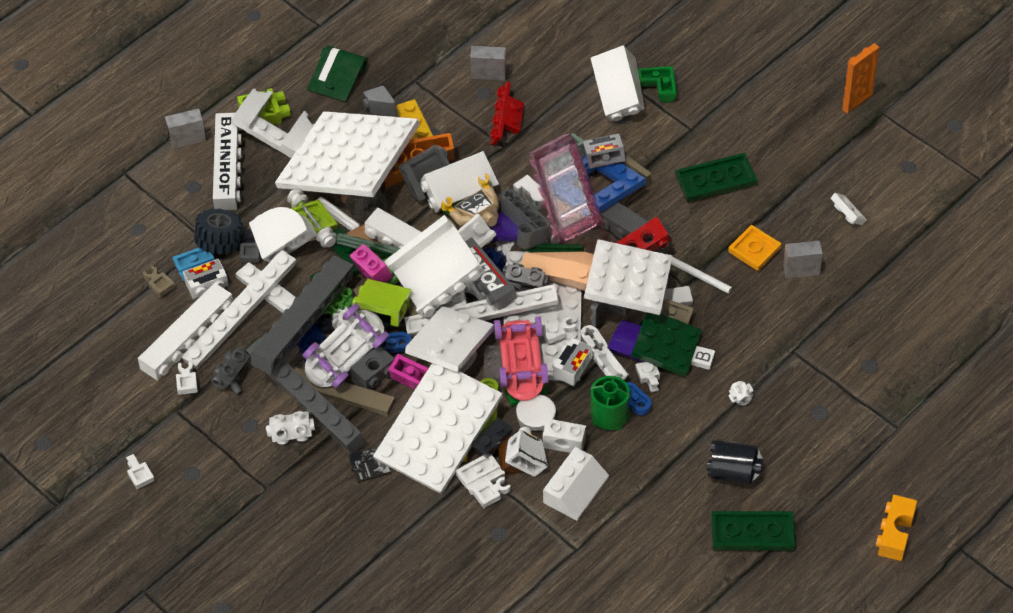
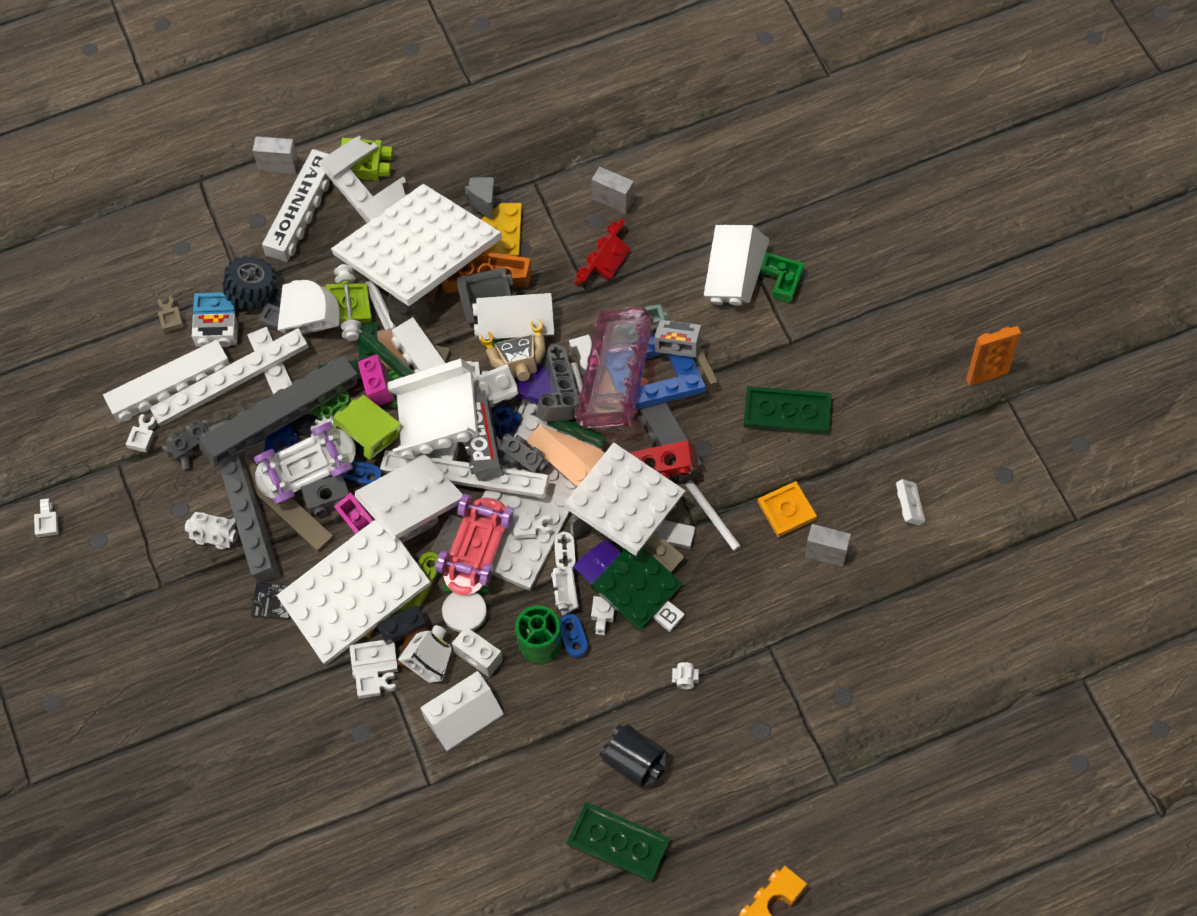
camera: 25 degrees right, 10 degrees up
(337, 70) = (458, 143): dark green door -> none
(572, 361) = (525, 570): brick -> none

